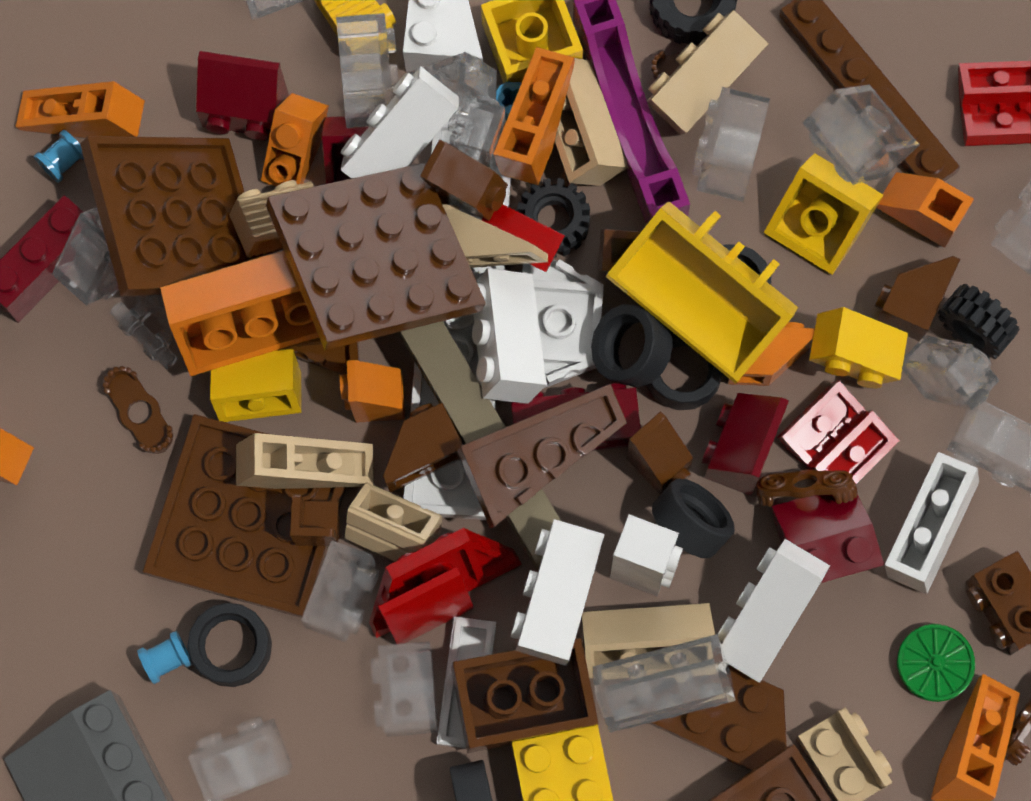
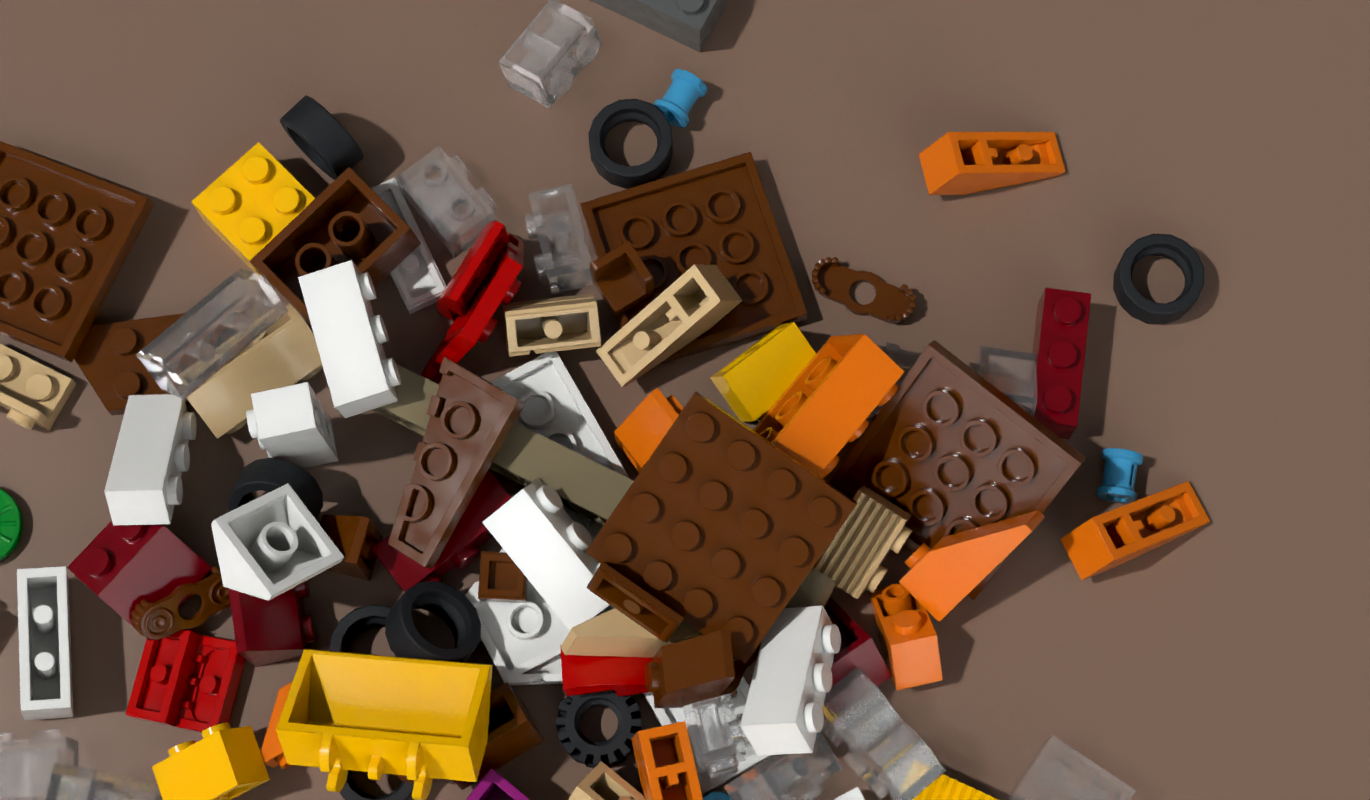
camera: 145 degrees right, 0 degrees up
(215, 150) = (962, 560): none -> orange slope
(238, 94) = (988, 639): dark red slope -> none
(422, 447) = (568, 406): reddish brown slope -> none
(472, 245) = (635, 602): none -> reddish brown slope
(559, 356) = (501, 579): none -> reddish brown tile
(715, 453) = (271, 545): none -> white slope

